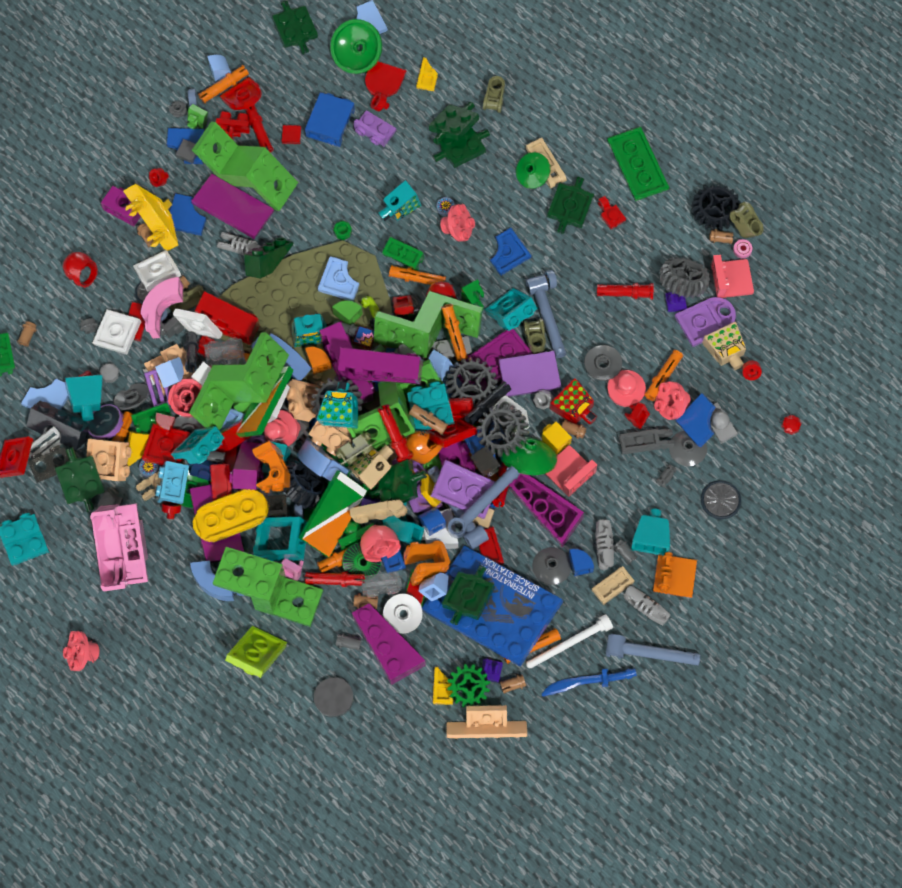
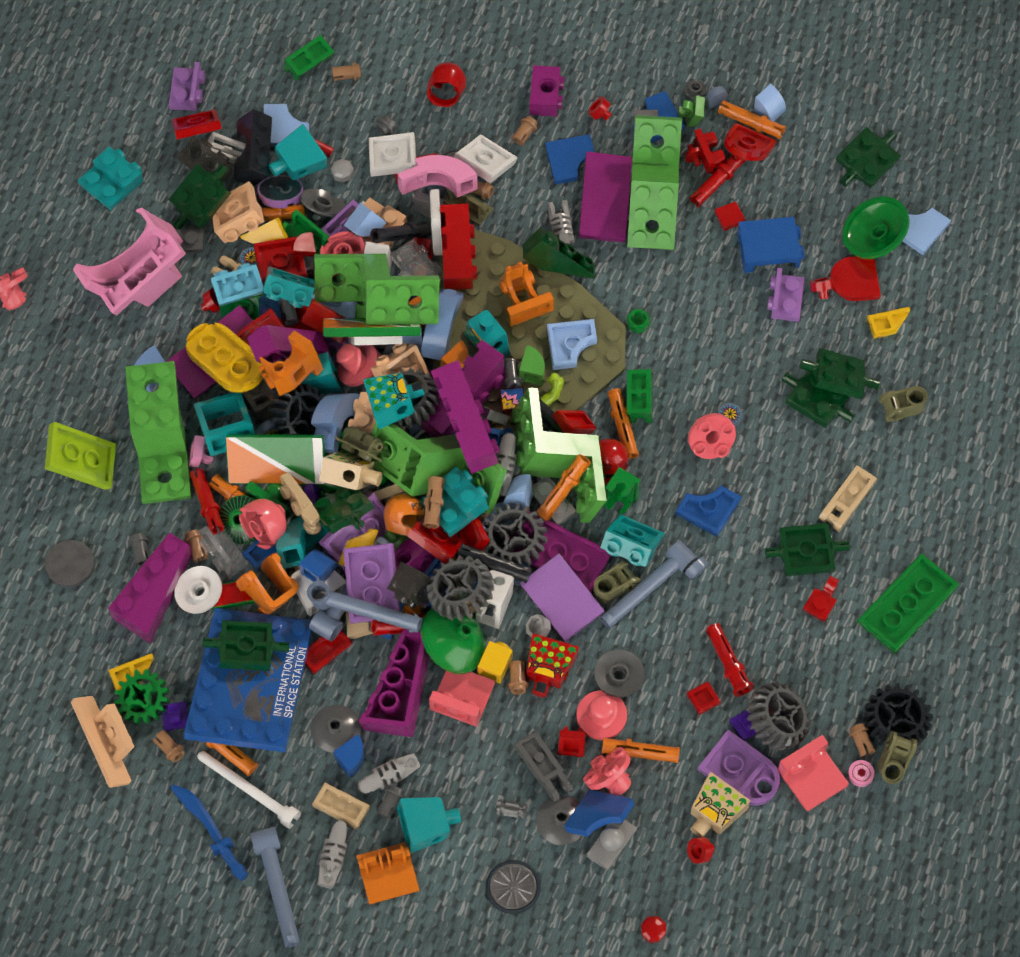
camera: 65 degrees right, 5 degrees down
(155, 215) = (547, 123): yellow connector -> none
(297, 293) = (518, 279): none -> orange tile
(398, 441) = (388, 481): red pin -> none
(400, 202) = (703, 362): teal torso -> none
(434, 586) = (242, 606): light blue brick -> none
(538, 175) = (829, 488): green dish -> none
(644, 319) = (703, 698): none -> red tile

